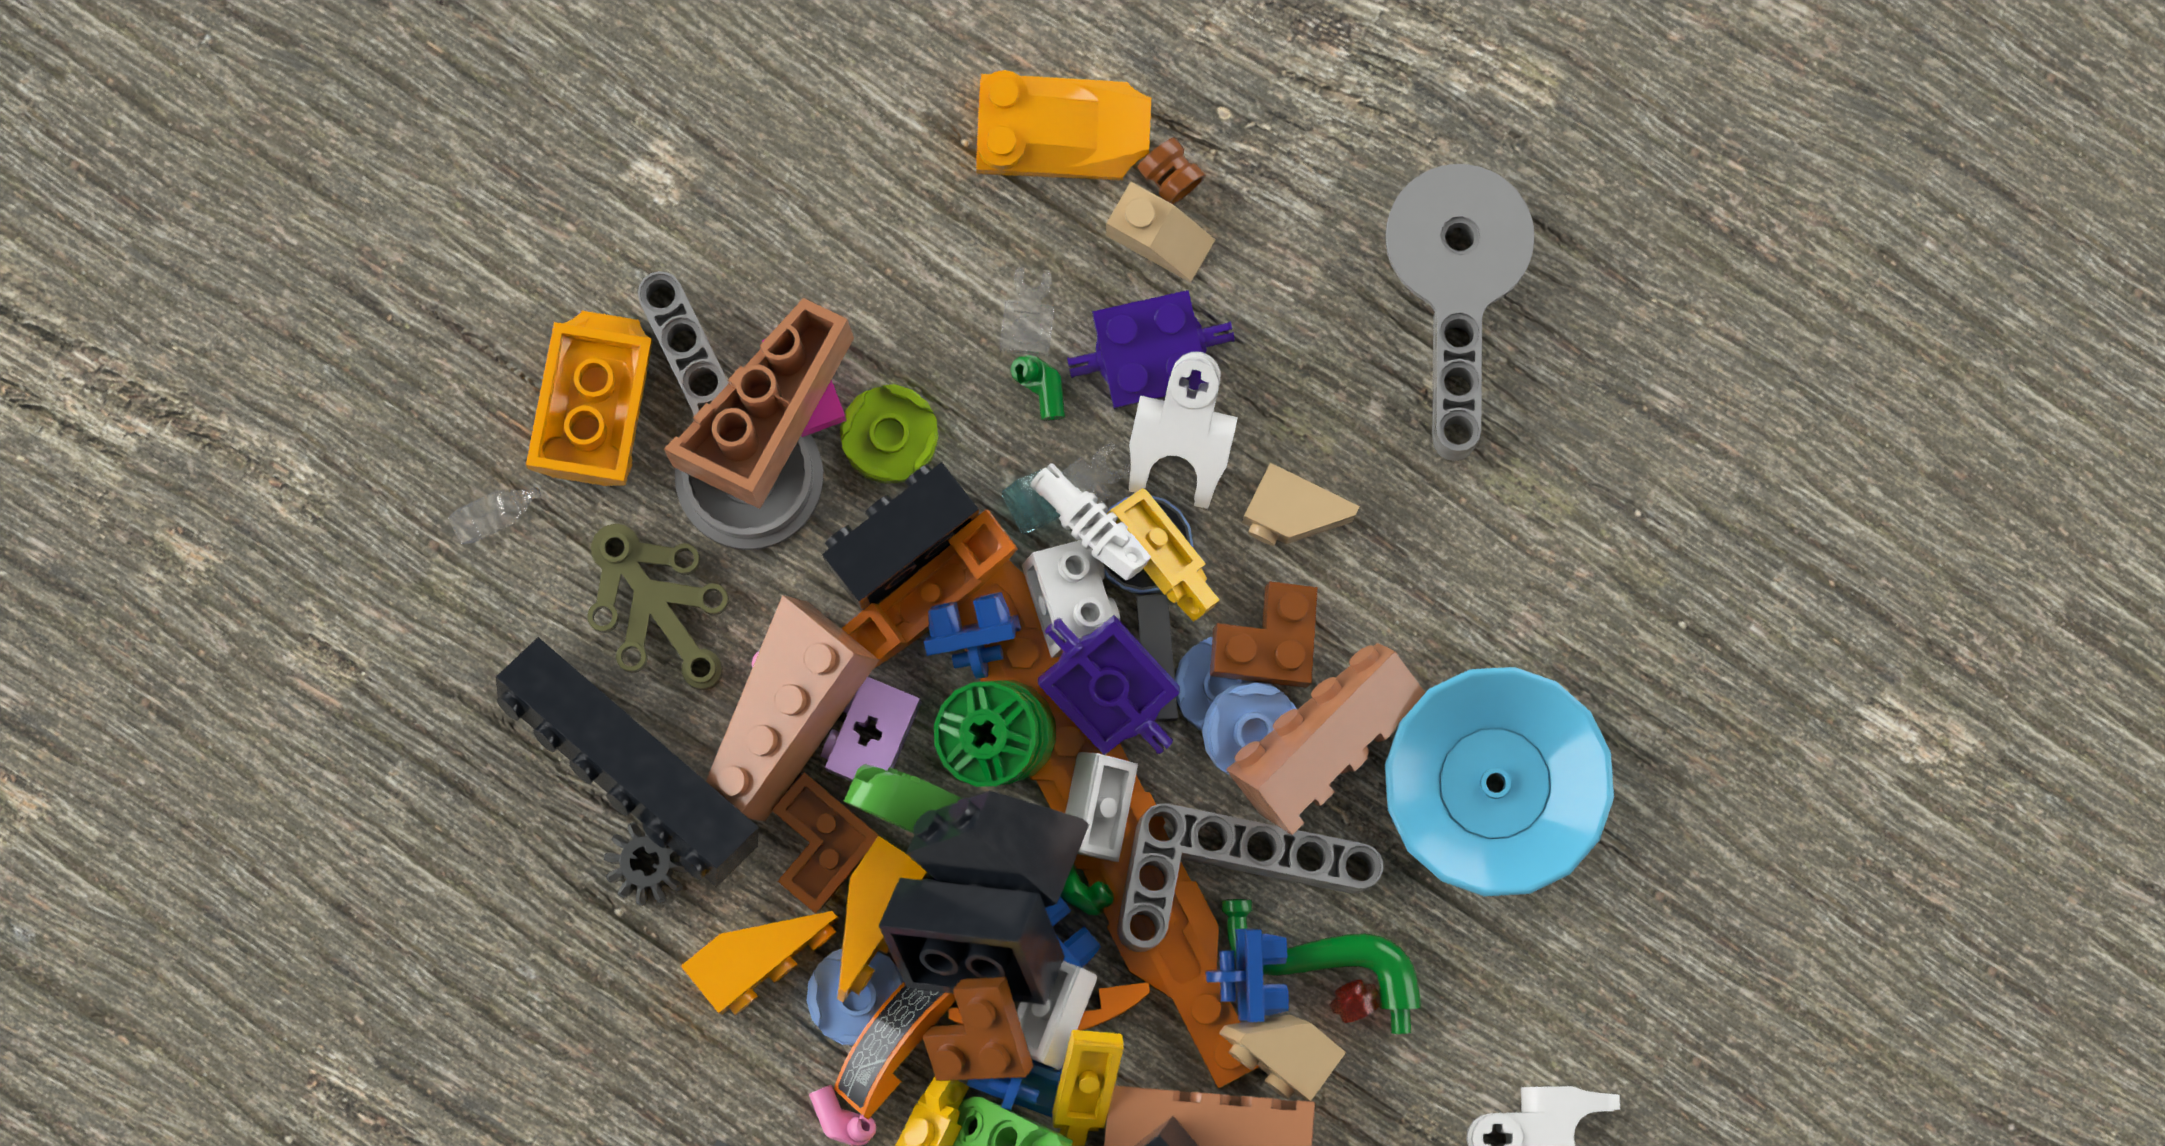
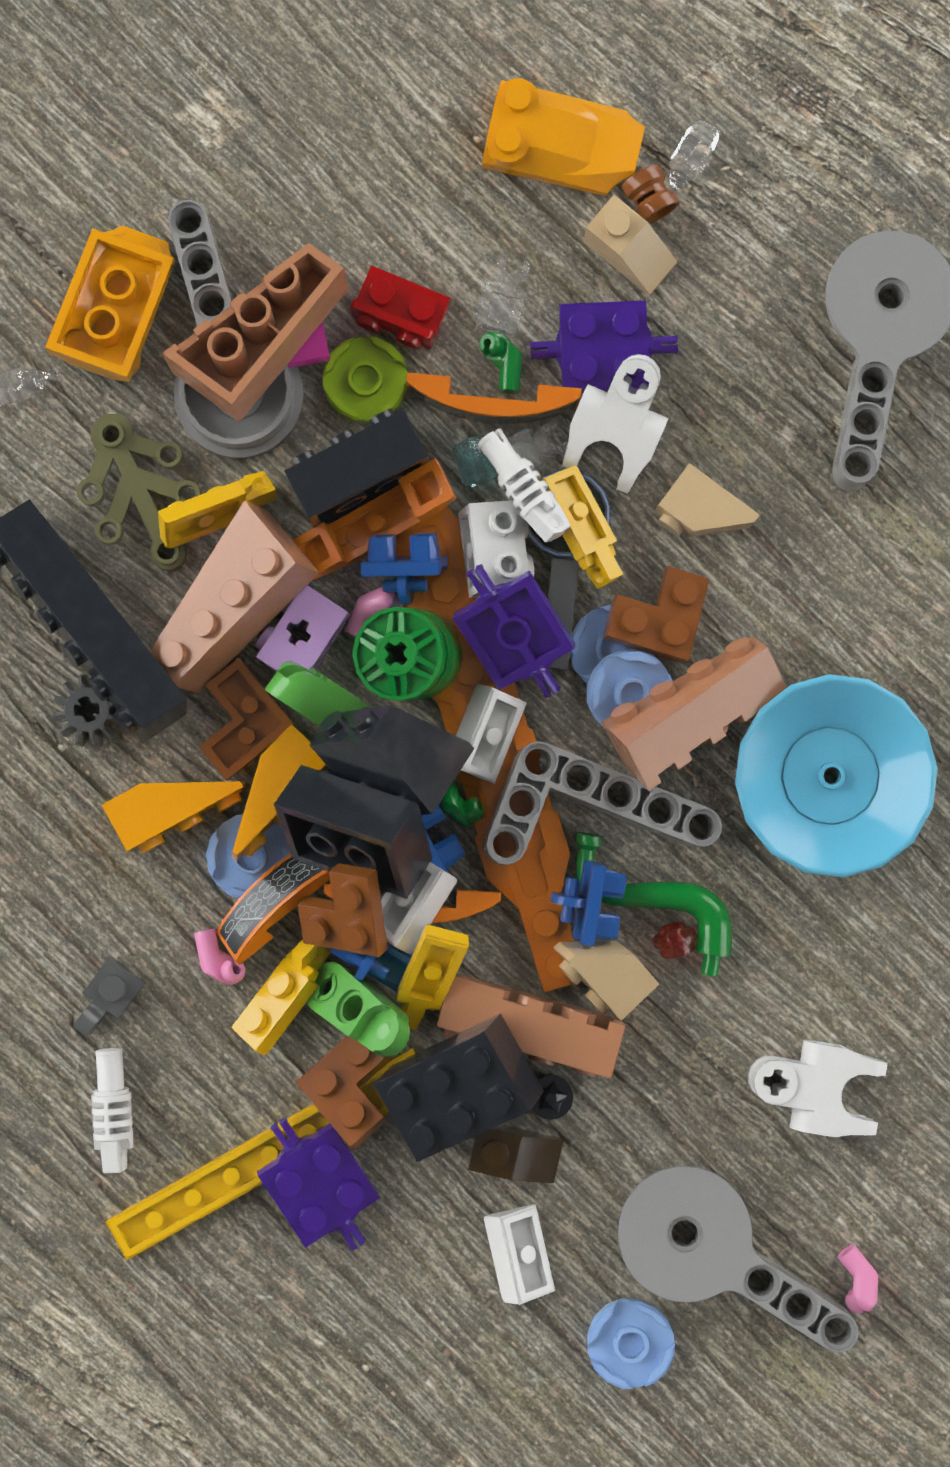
camera: 15 degrees right, 5 degrees up
(746, 611) = (212, 510): none -> yellow hinge
(914, 348) = (399, 308): none -> red bracket
(939, 688) = (368, 605): none -> bright pink arm
(973, 435) = (437, 393): none -> orange slope
(1209, 117) = (692, 154): none -> clear piece

